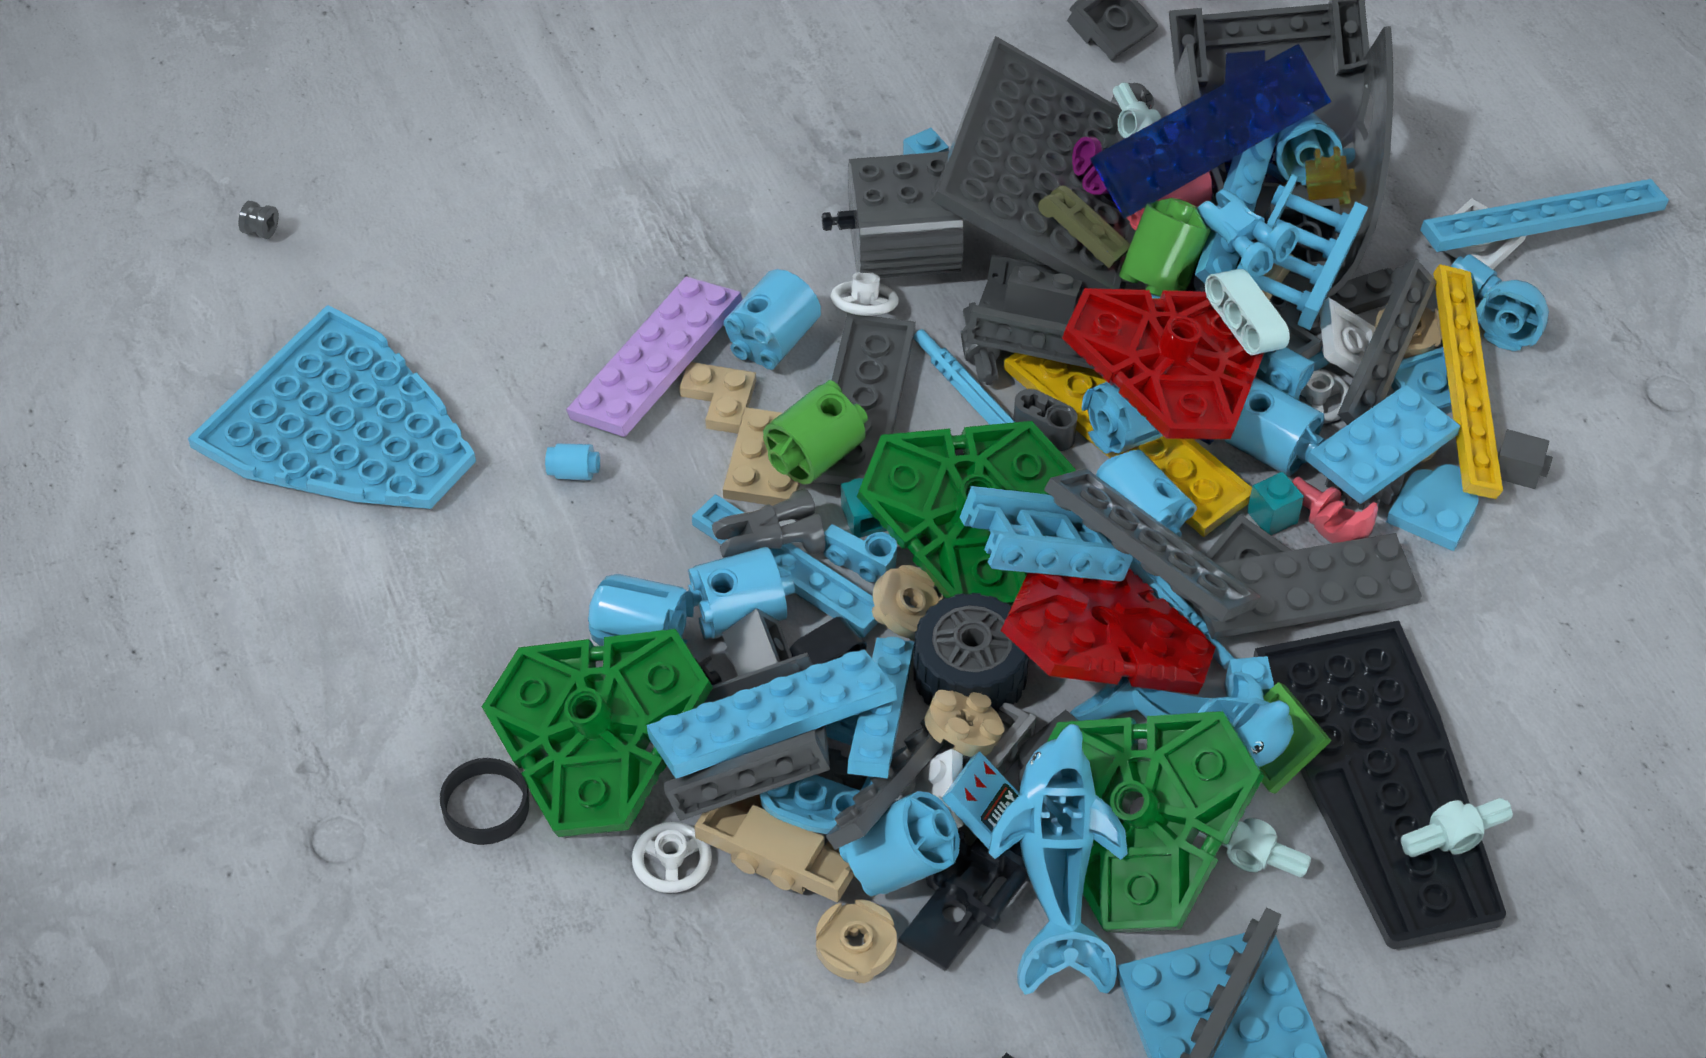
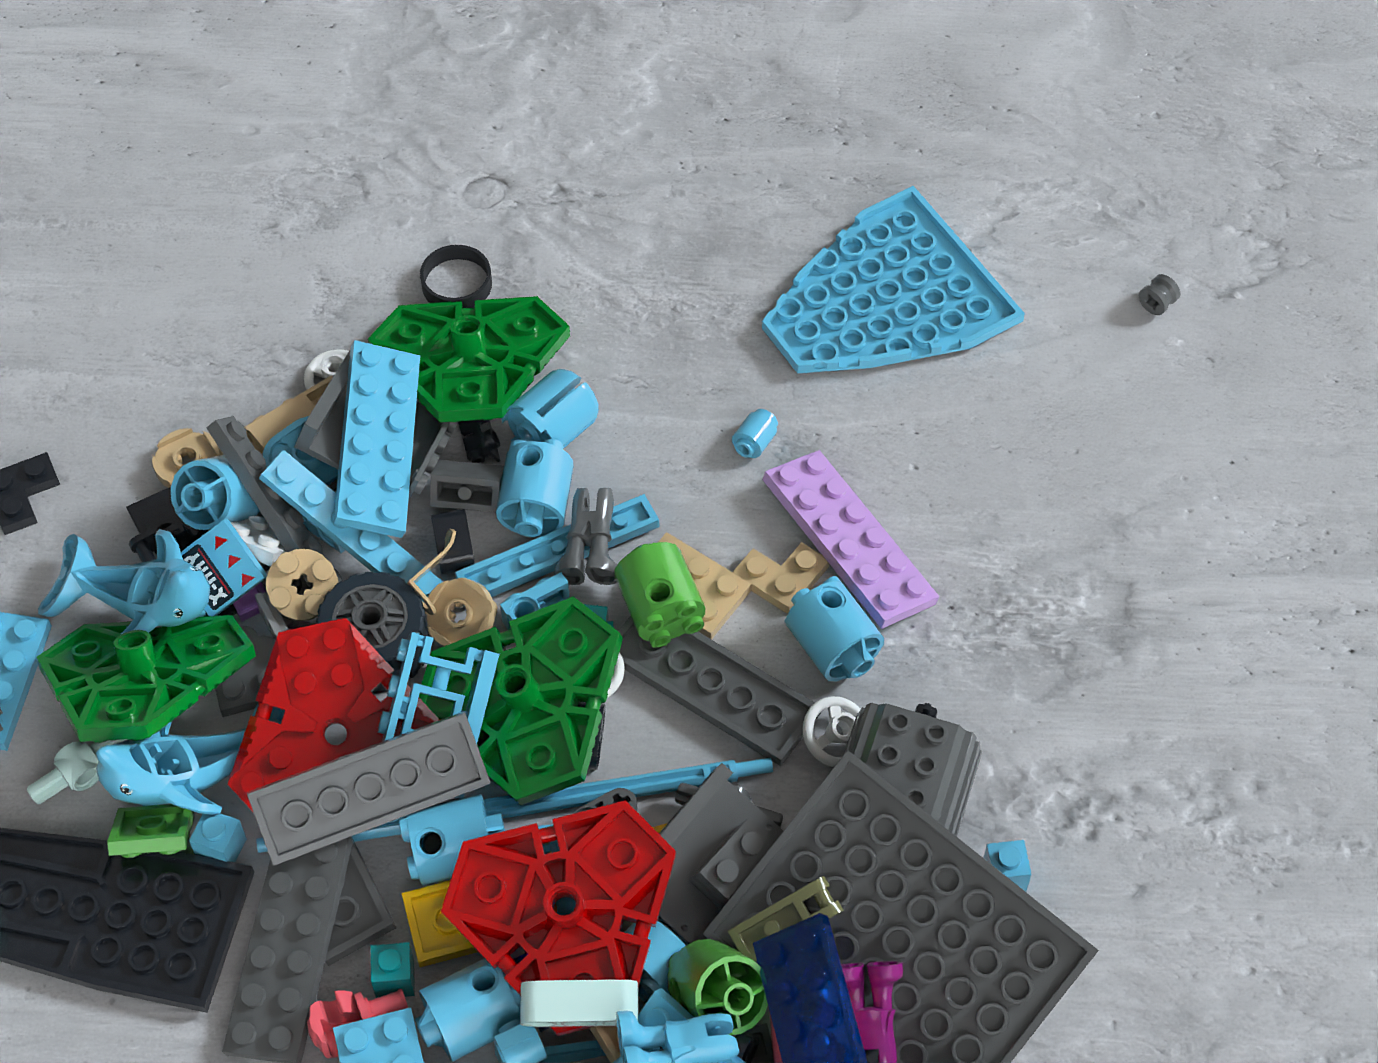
camera: 115 degrees right, 5 degrees up
(879, 619) = (429, 607): none -> tan piece

